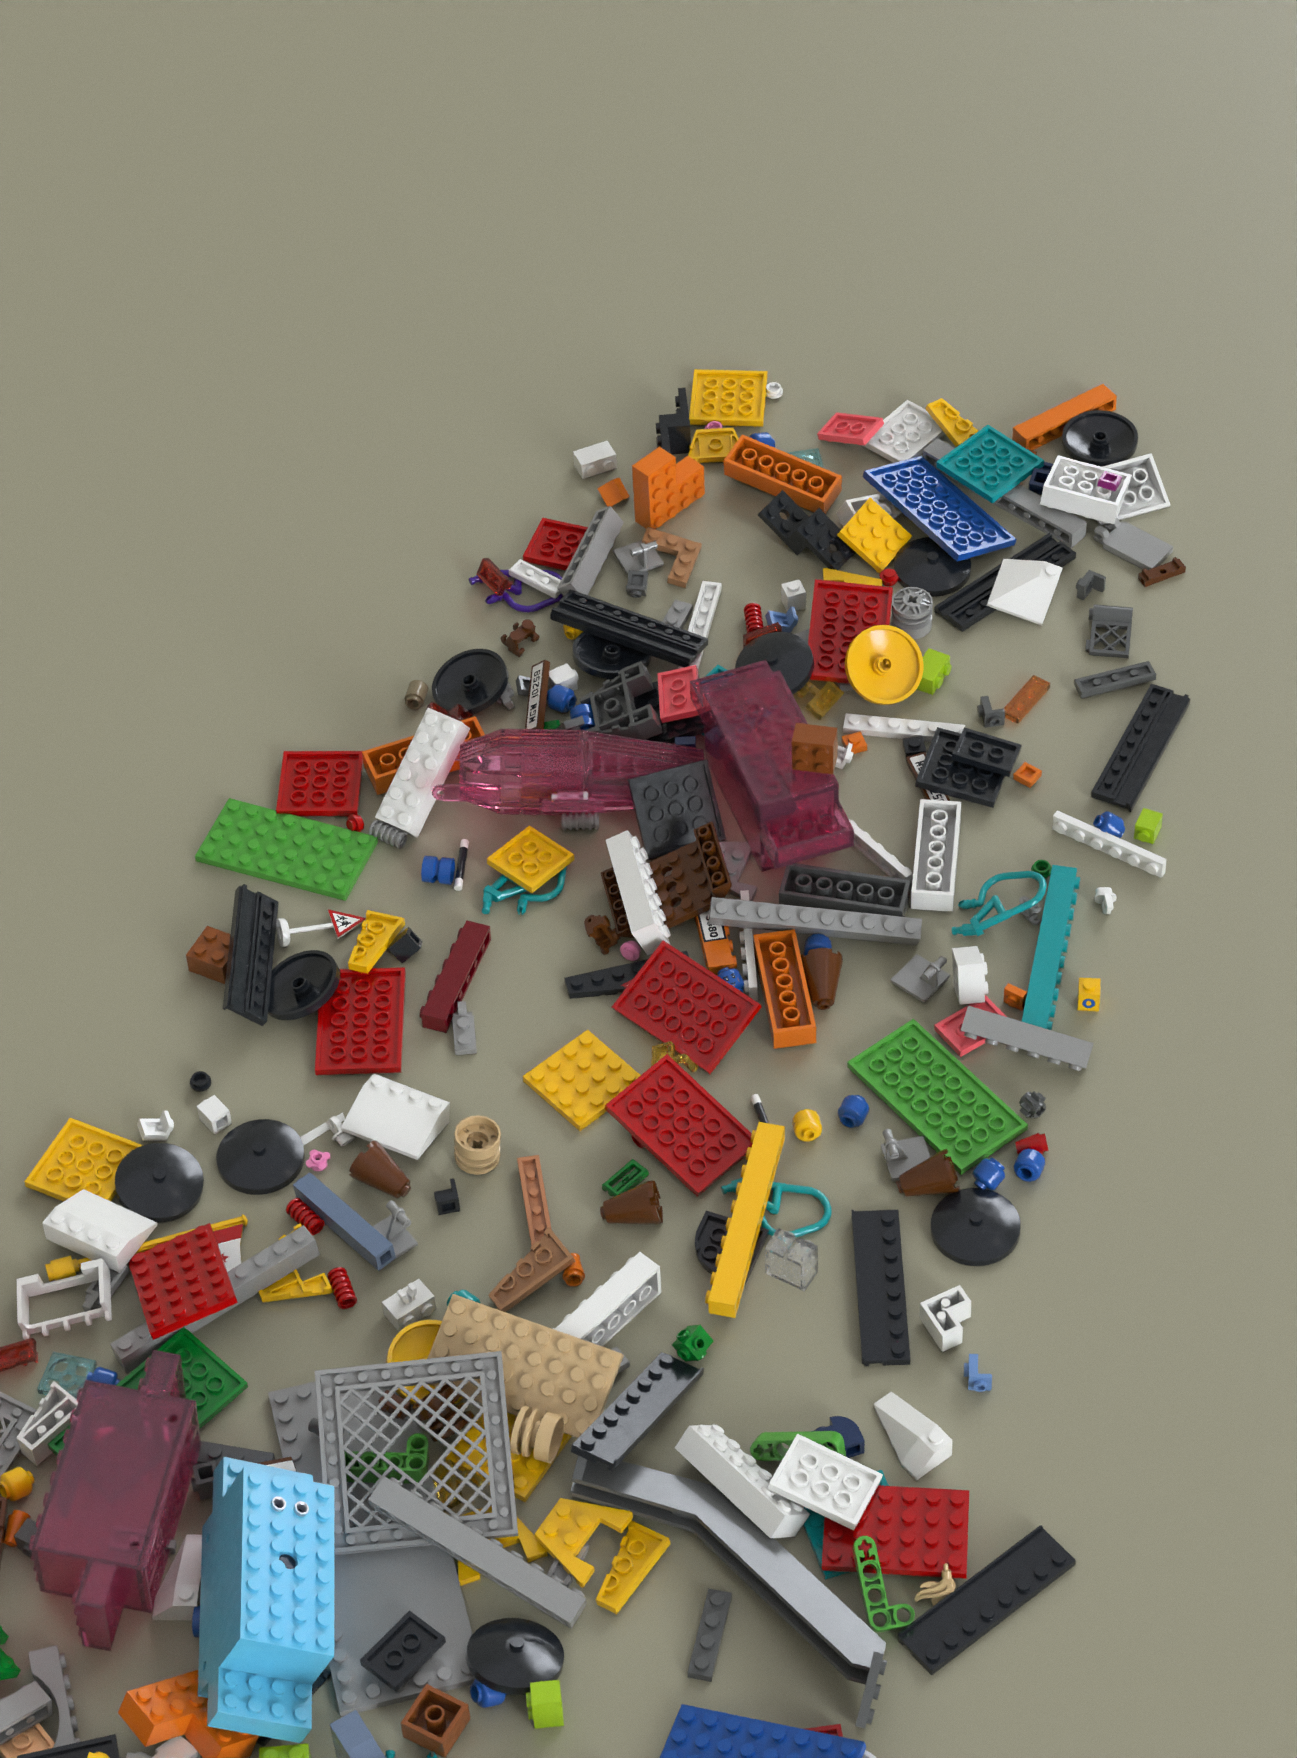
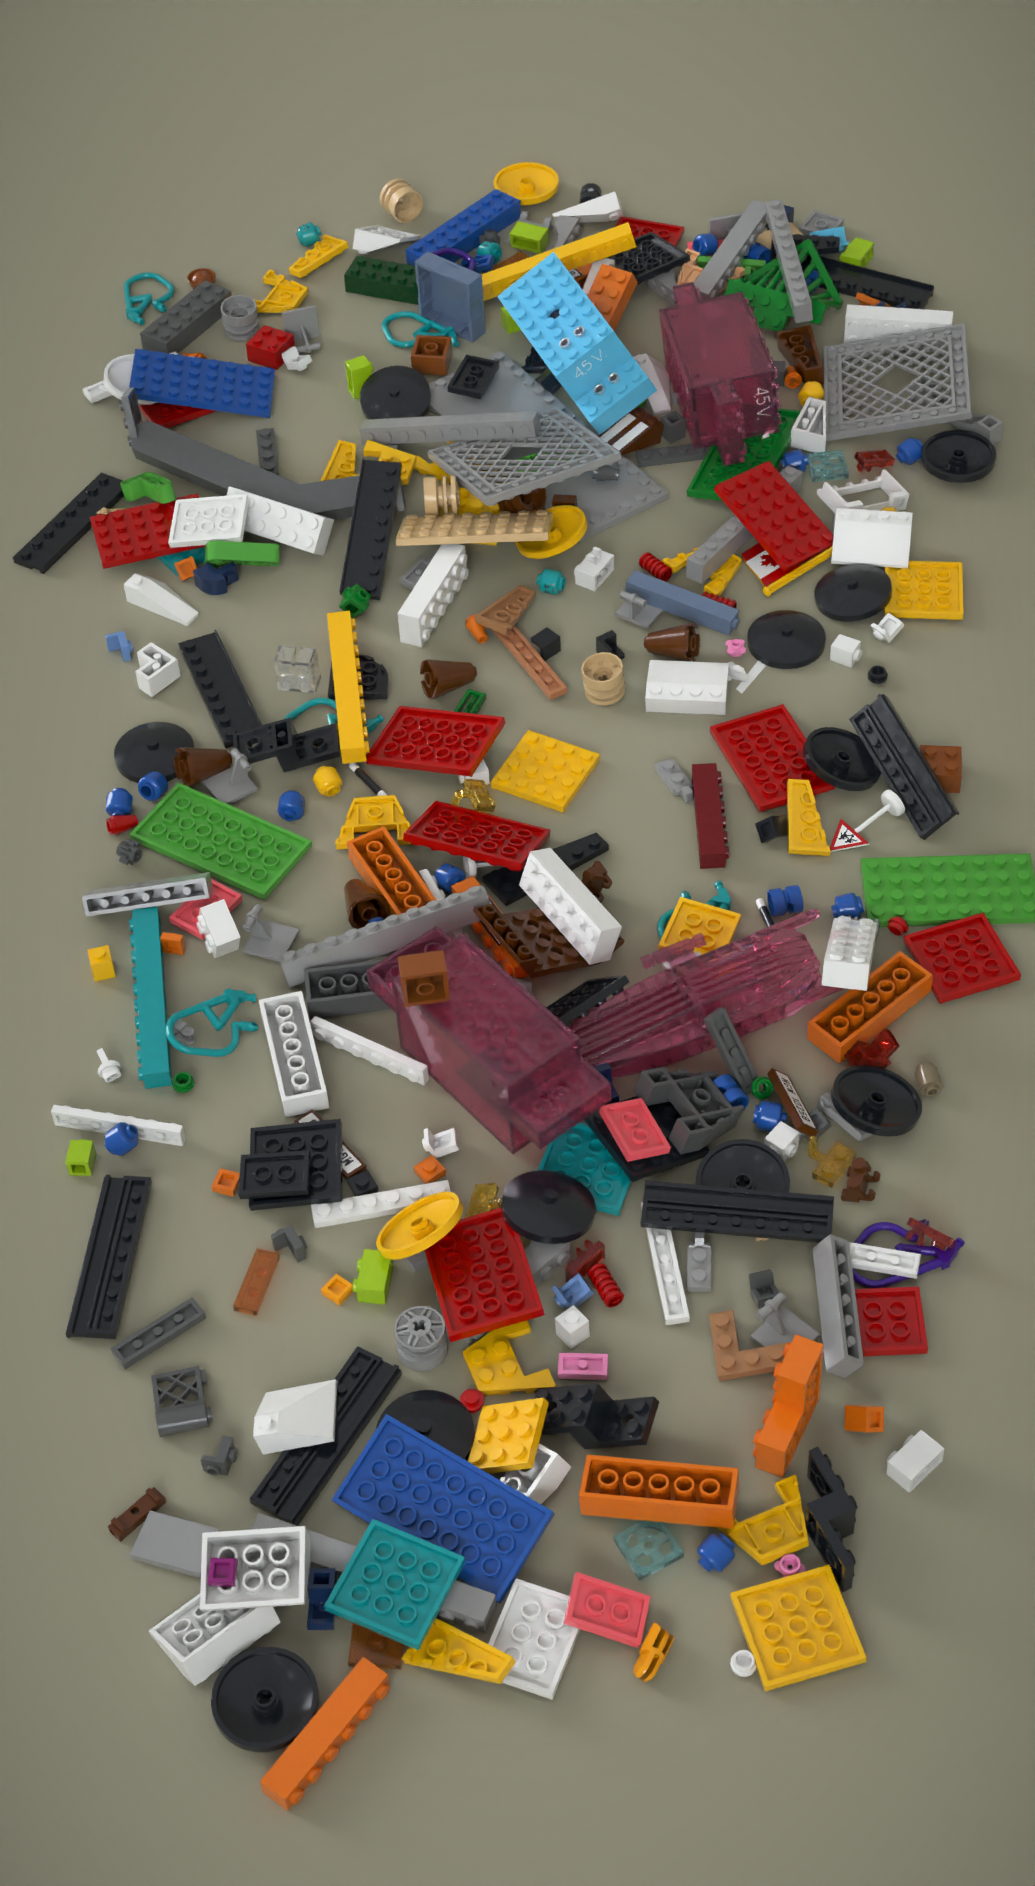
camera: 160 degrees right, 0 degrees up
(387, 850) = (847, 905): none -> blue head
(509, 1218) = (548, 643): none -> black panel
(523, 662) = (832, 1164): none -> clear yellow plate
(776, 1077) = (370, 814): none -> yellow wing
(791, 572) = (583, 1366): none -> bright pink plate
(830, 405) = (653, 1652): none -> light orange arm
(832, 1167) = (291, 748): none -> black bracket
(873, 1462) = (185, 568): none -> orange plate
(962, 677) = (337, 1289): none -> light orange tile

